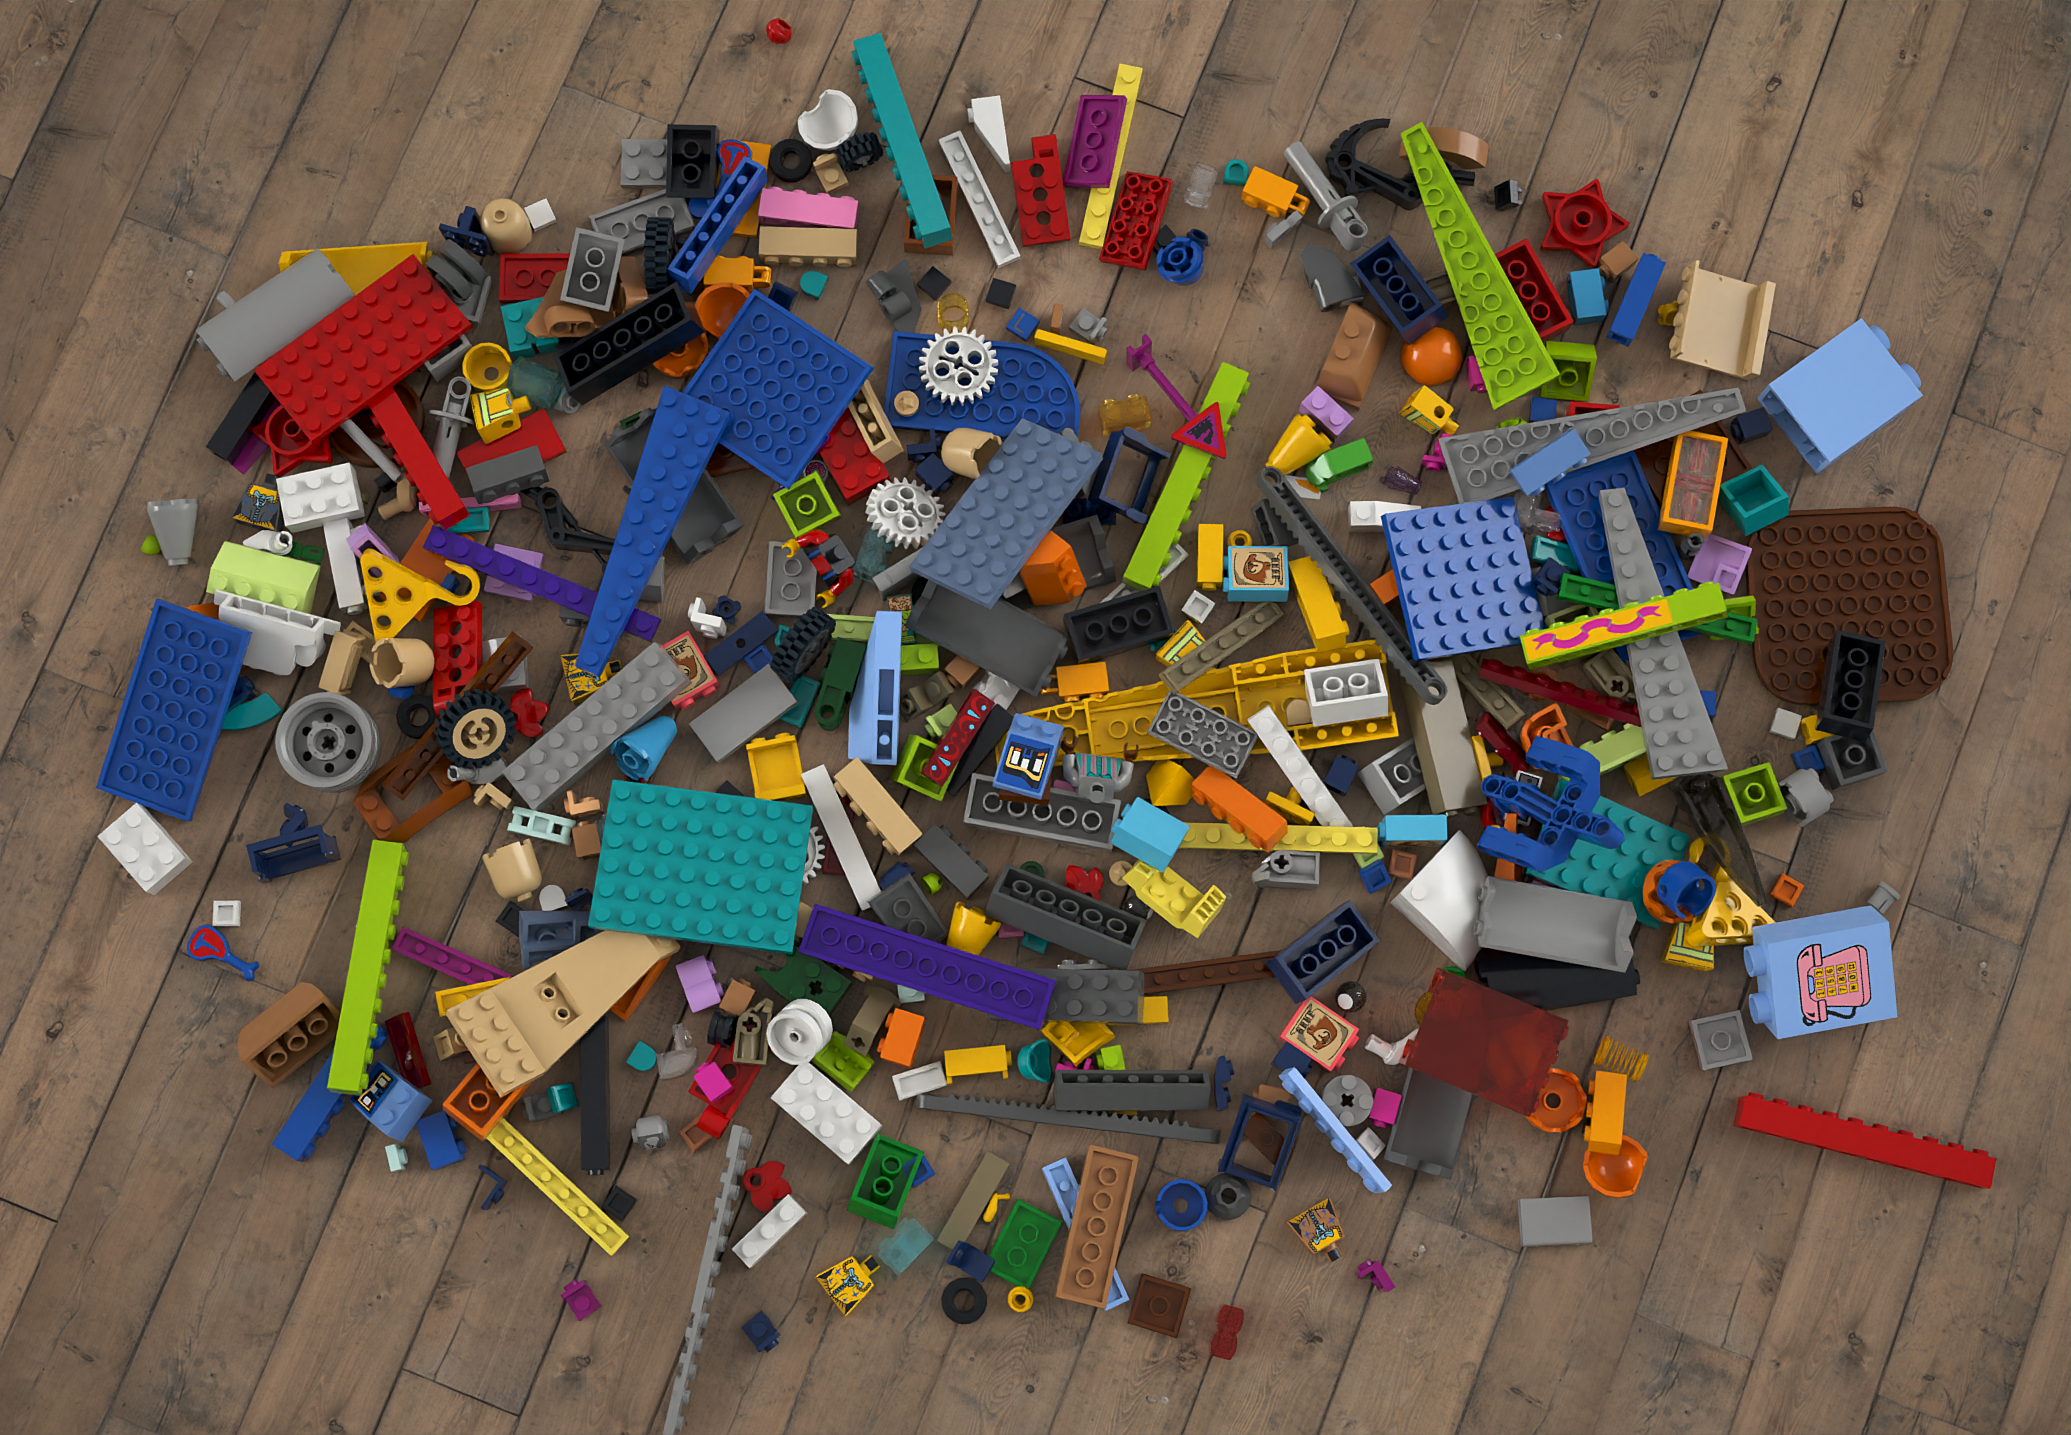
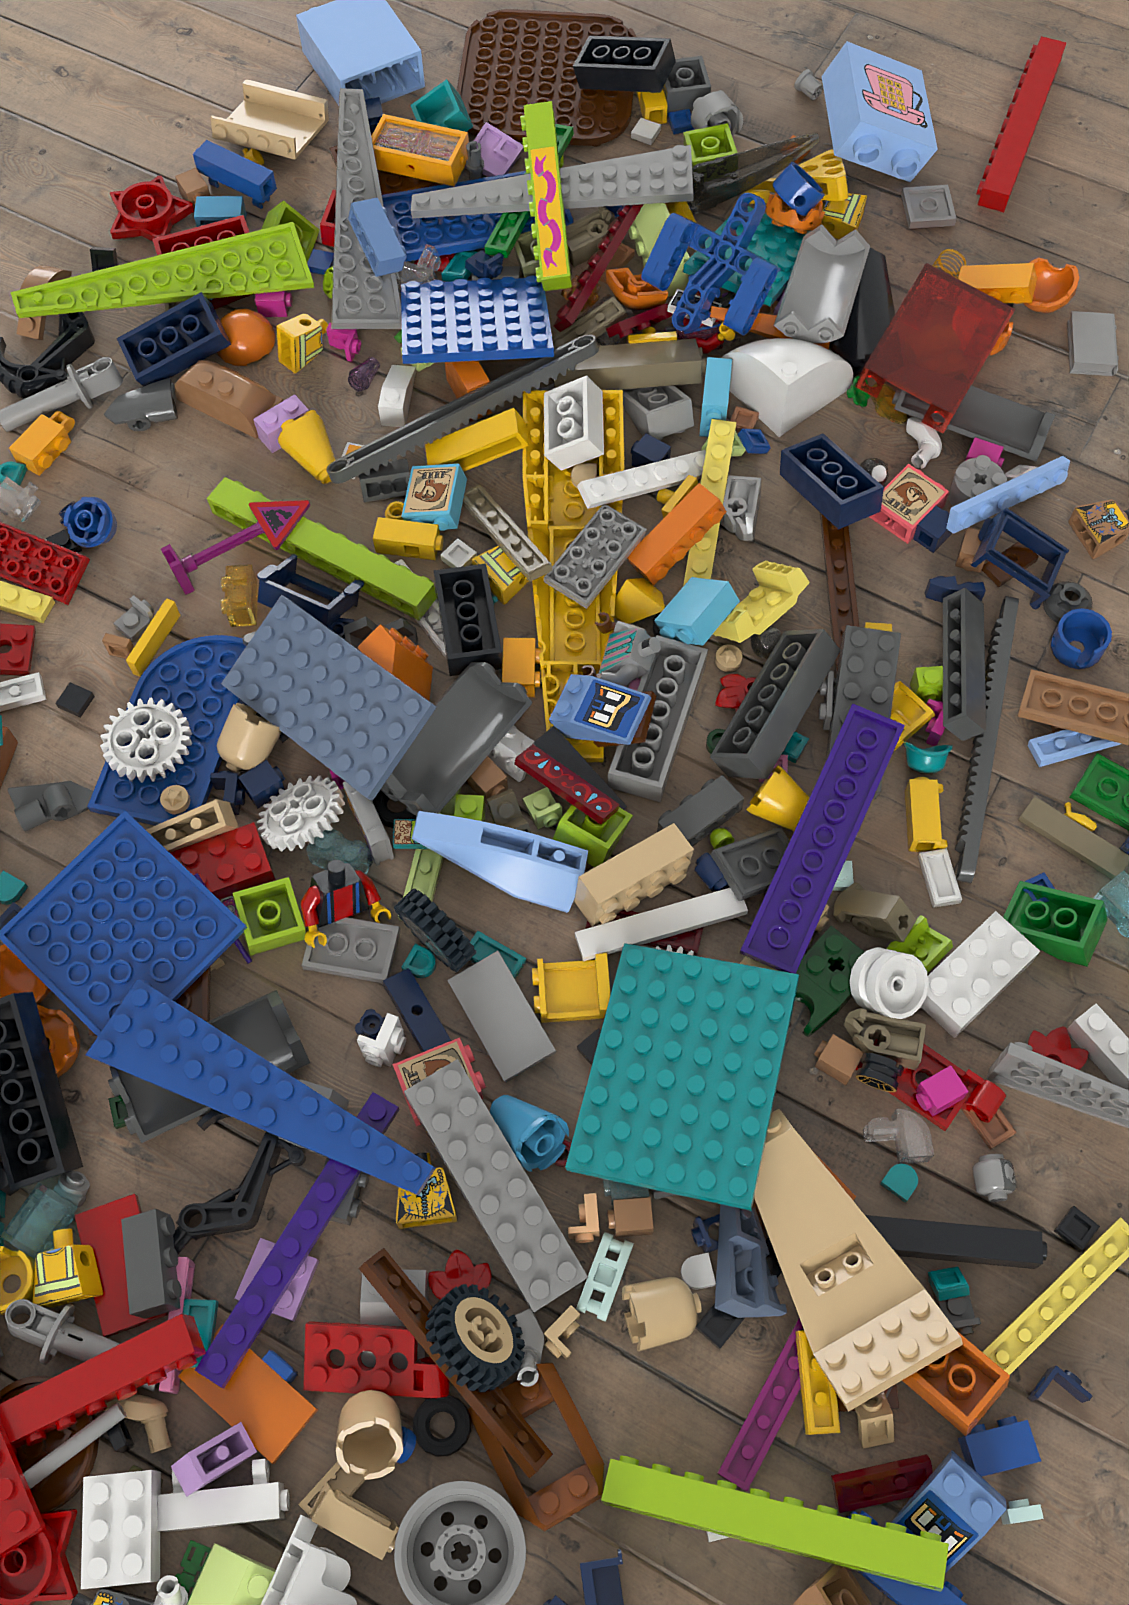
camera: 80 degrees left, 15 degrees down
(397, 576) = (300, 1422): yellow piece -> none
(699, 984) = (818, 1101): lavender brick -> none
(758, 658) = (440, 995): blue tile -> none
(839, 681) = (481, 900): dark green brick -> none
(902, 1038) = (900, 876): orange brick -> none
(934, 283) = (44, 763): black tile -> none
(944, 322) = (76, 746): clear yellow piece -> none
(1022, 324) = (116, 683): blue tile -> none
(1278, 232) = (84, 442): light grey plate -> none
(1339, 464) = (336, 418): bright green piece -> none

